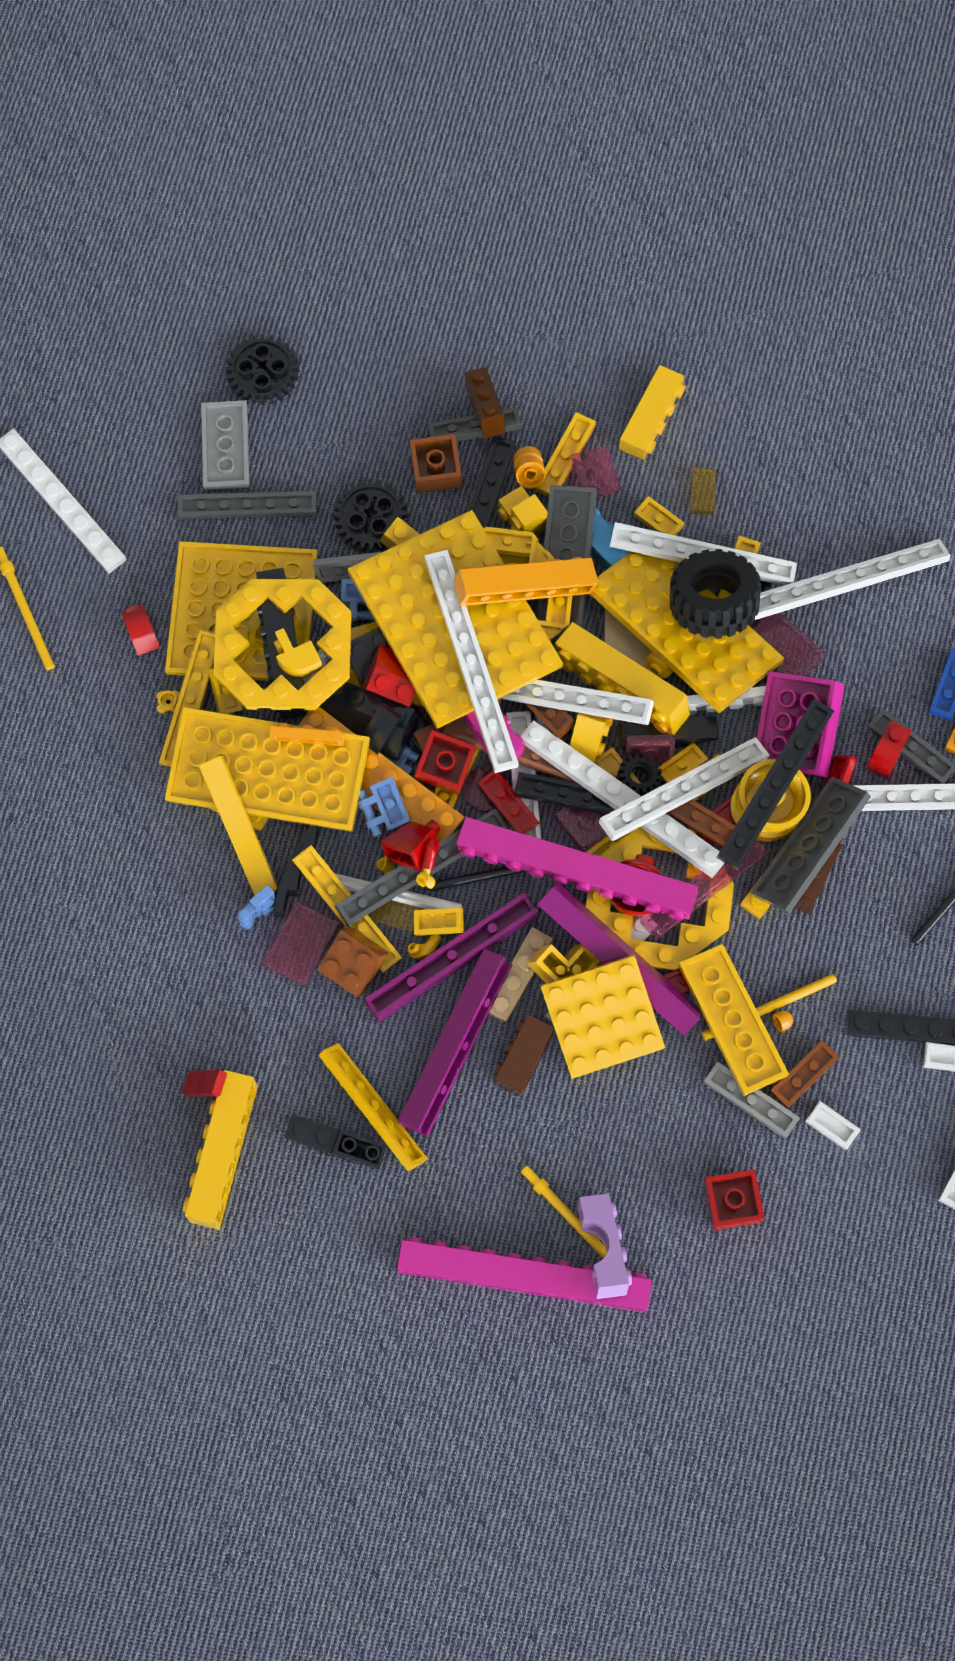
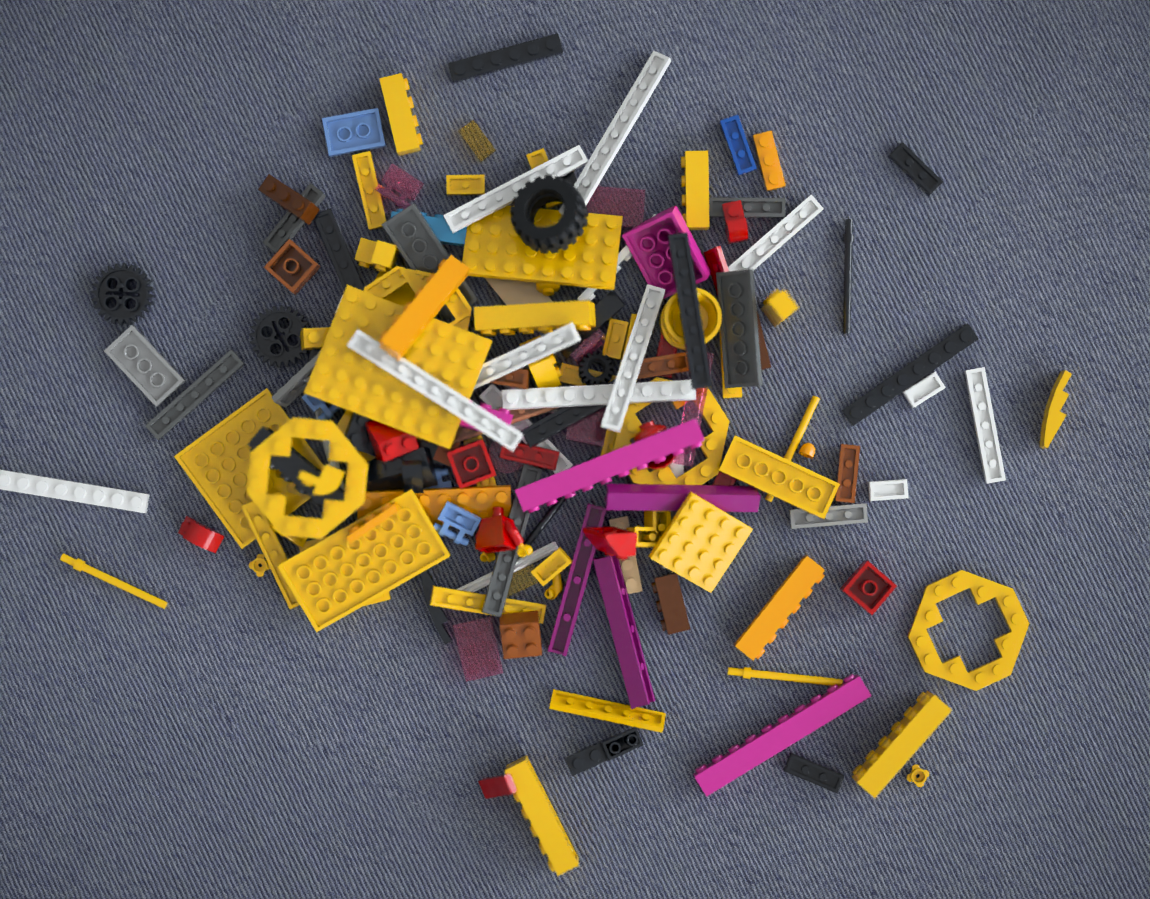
camera: 40 degrees left, 15 degrees up
(238, 825) = (378, 611): yellow tile -> none
(260, 904) = (435, 646): medium blue plate -> none
(517, 942) = (612, 541): none -> red slope
(524, 1344) = (814, 773): none -> black tile
(529, 467) = (354, 220): light orange wheel -> none
(595, 395) = (353, 132): none -> medium blue plate
(598, 1218) = (796, 665): lavender arch -> none
(620, 1434) = (921, 779): none -> yellow plate
(627, 1148) = (779, 607): none -> light orange brick
(638, 1384) = (900, 743): none -> yellow brick
(792, 440) = (505, 58): none -> black plate
(848, 1305) = (982, 591): none -> yellow plate
(866, 852) = (778, 306): none -> yellow brick
(875, 692) = (696, 189): none -> yellow brick

